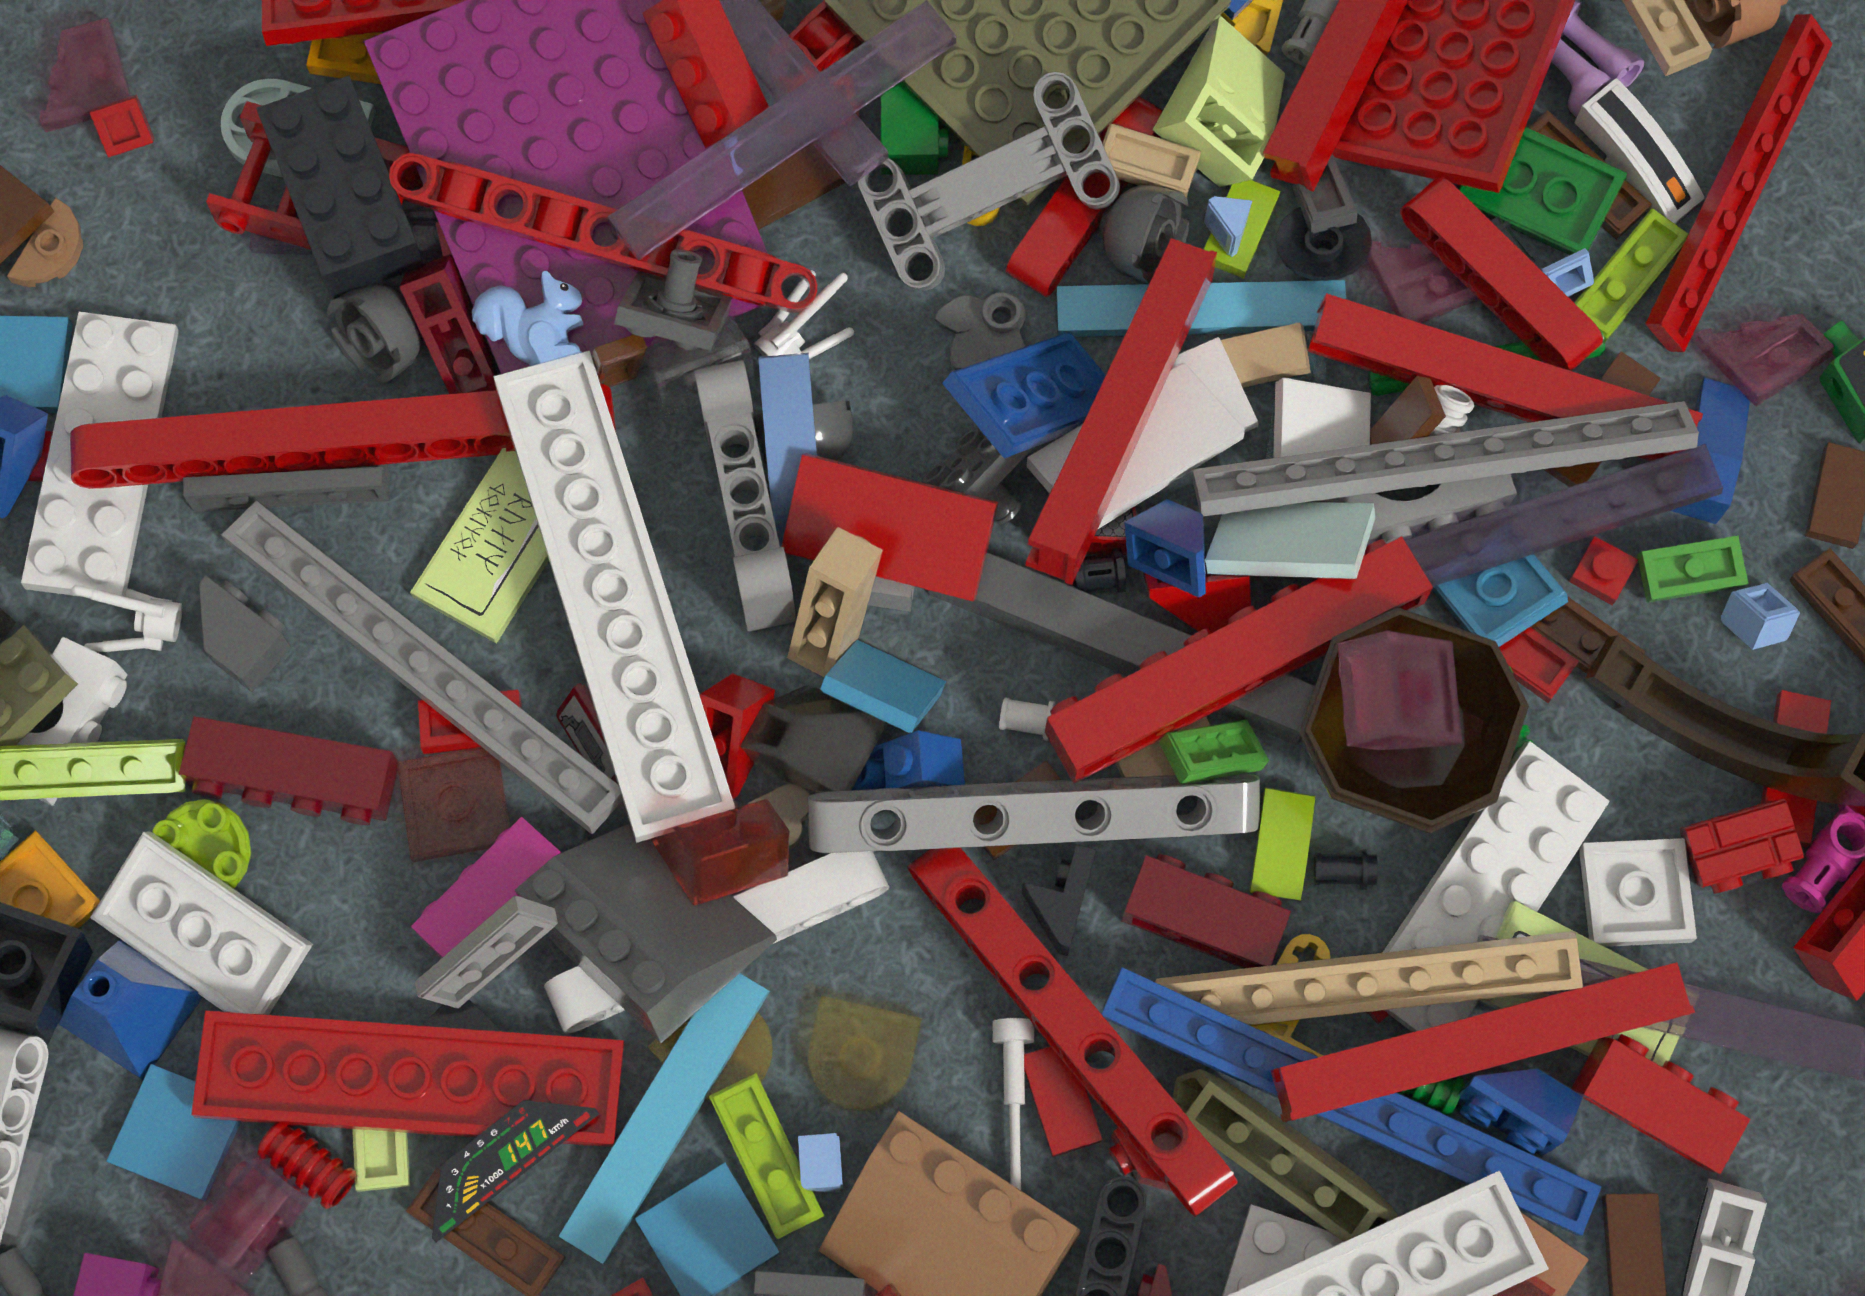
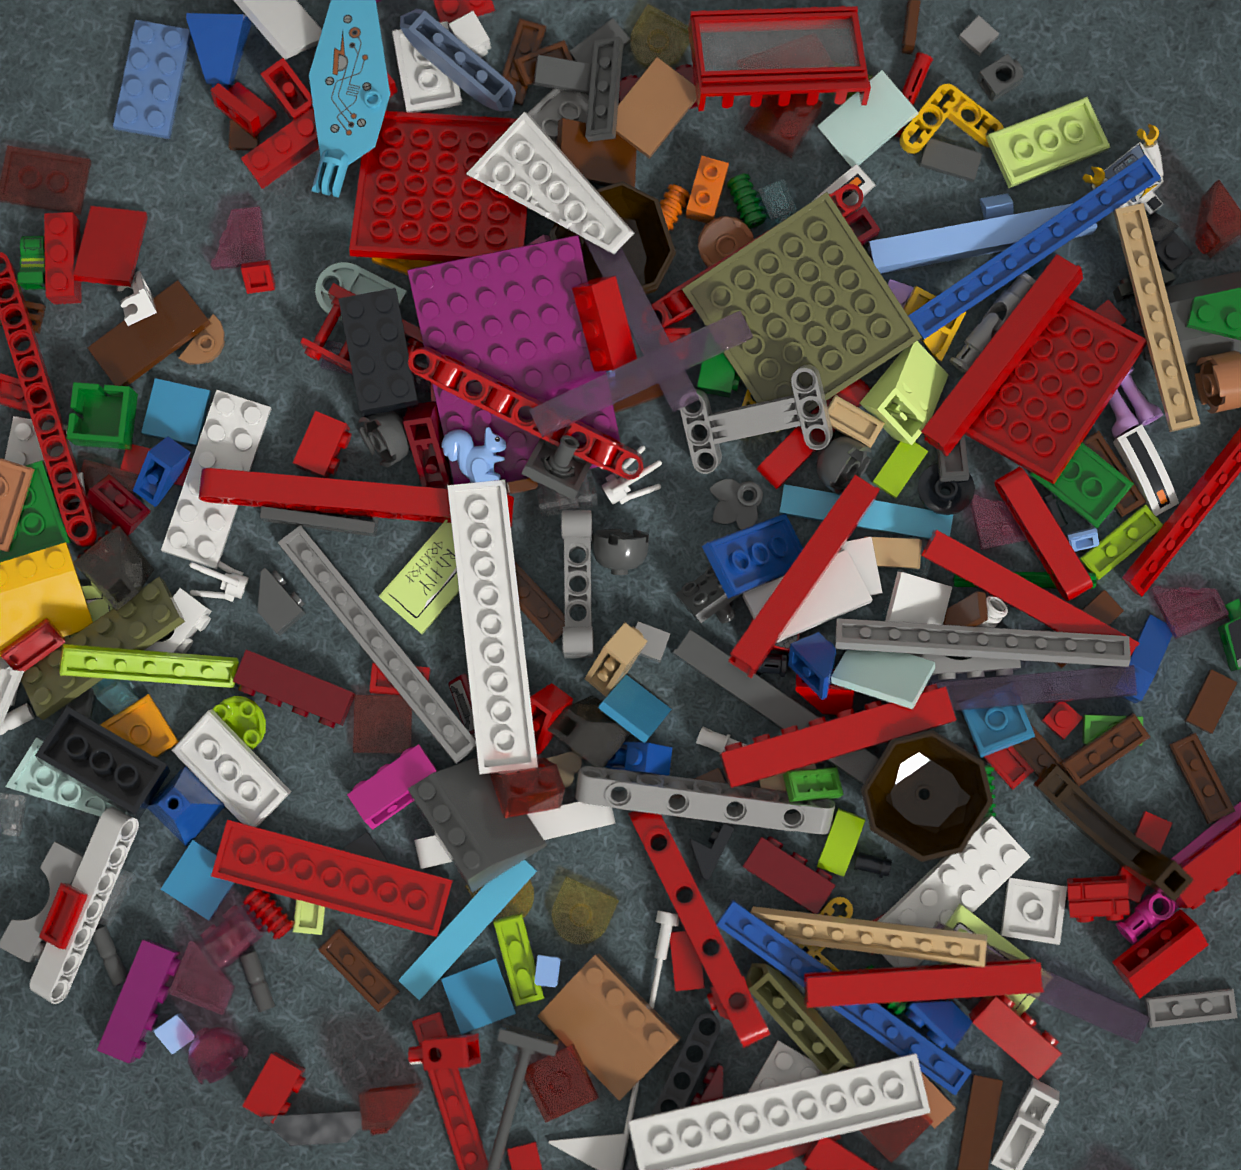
camera: 15 degrees right, 10 degrees up
(272, 363) = (322, 445): none -> red brick
(486, 952) = (386, 821): light grey tile -> none
(501, 1157) = (374, 932): black sticker -> none
(690, 561) = (539, 607): none -> reddish brown tile
(787, 426) = (609, 561): medium blue slope -> none
(925, 531) = (665, 622): red tile -> none
(1227, 221) = (891, 468): light blue slope -> none
(1399, 692) = (920, 783): clear pink slope -> none
(1690, 598) = (1105, 749): none -> reddish brown tile
(1759, 616) = (1144, 764): light blue slope -> none

